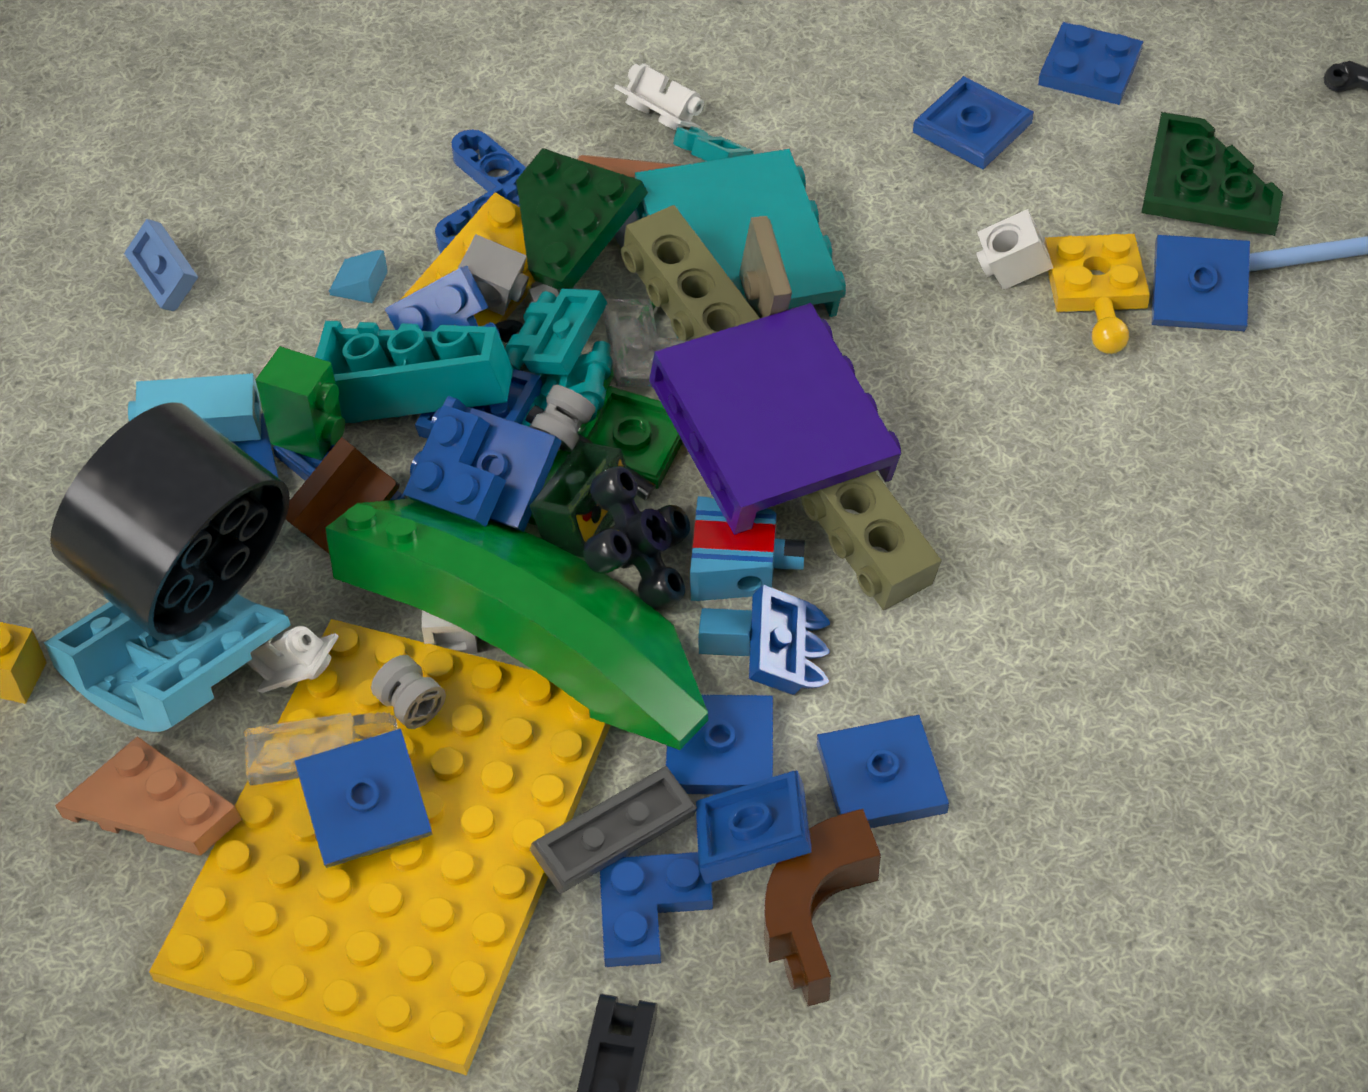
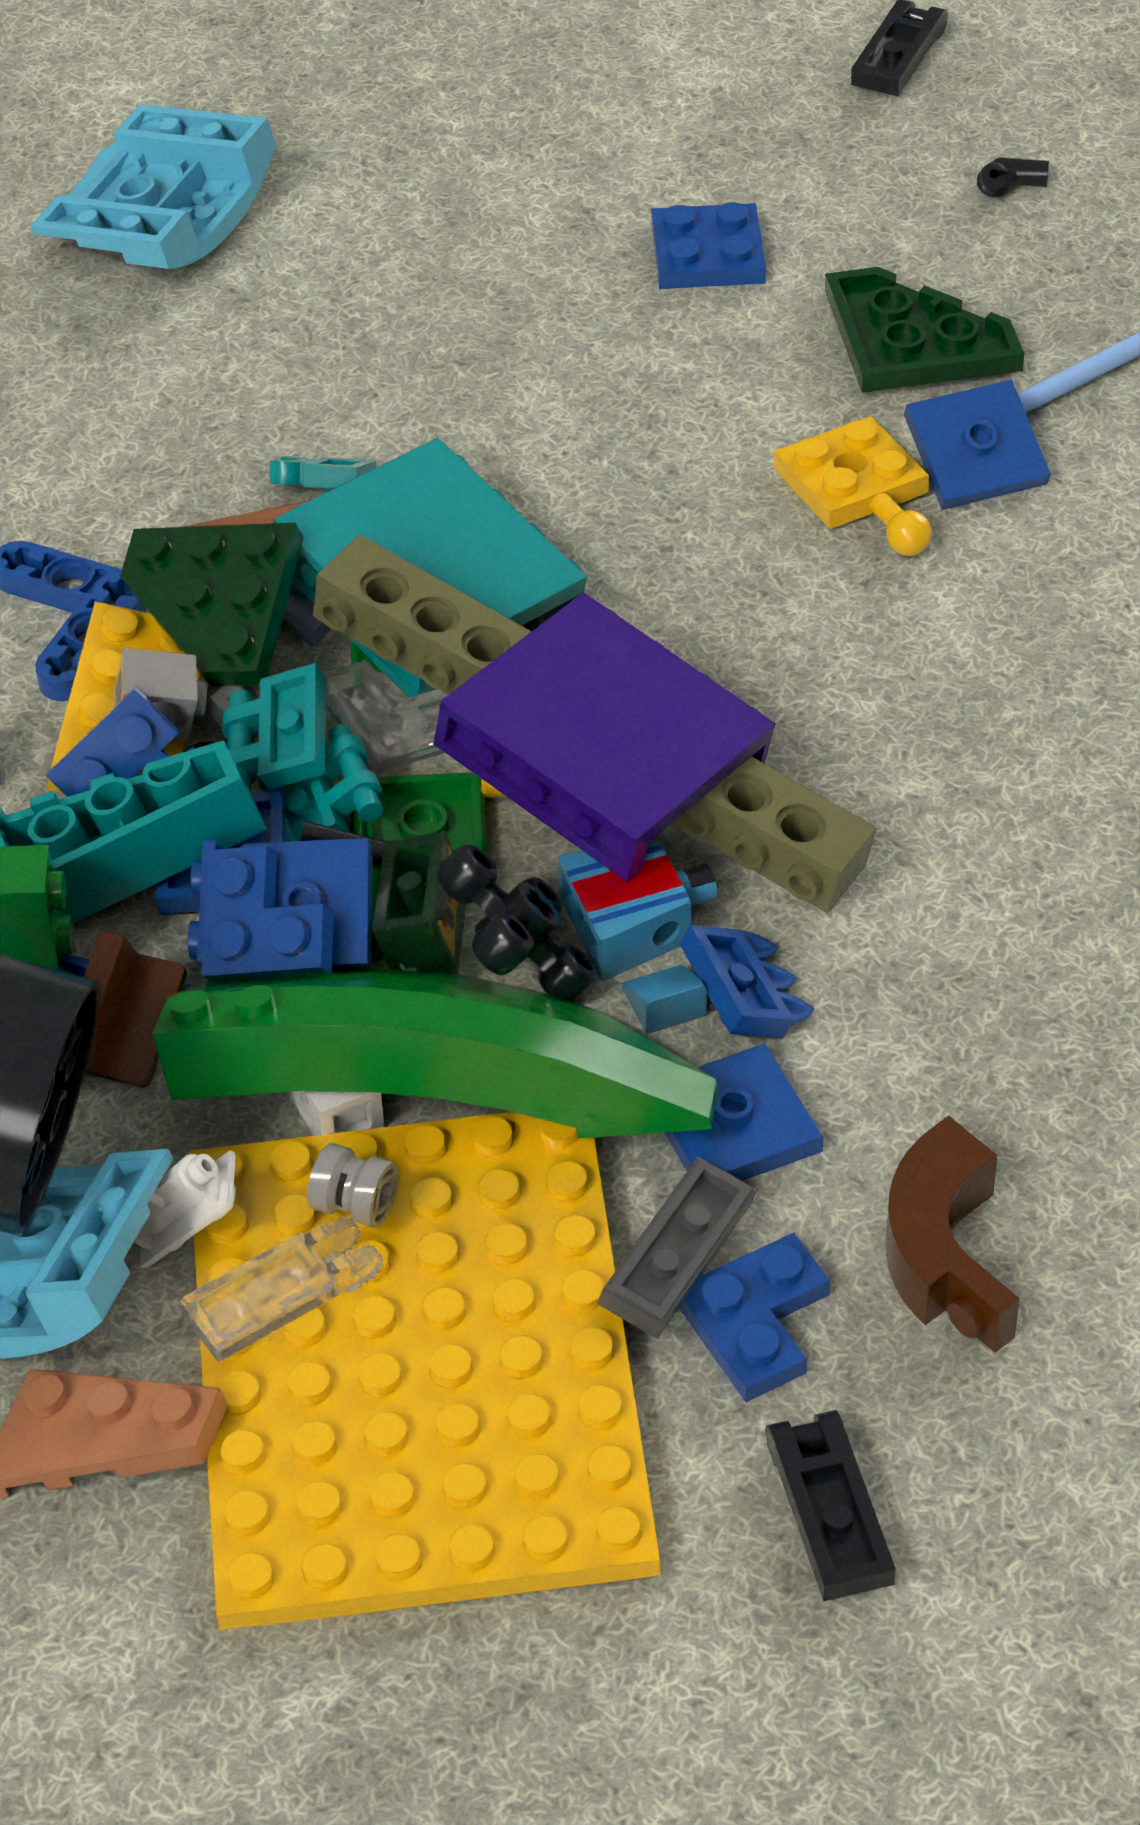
camera: 25 degrees left, 5 degrees down
(363, 798) = (374, 1317): blue plate -> none
(564, 416) = (356, 812): light grey wheel -> none
(646, 93) = (205, 430): white hinge -> none
(752, 827) = (836, 1182): blue plate -> none
(763, 270) = (510, 573): dark tan plate -> none
(883, 771) = (932, 1072): blue plate -> none
(973, 122) = (614, 350): blue plate -> none
(1013, 250) = (751, 474): white brick -> none

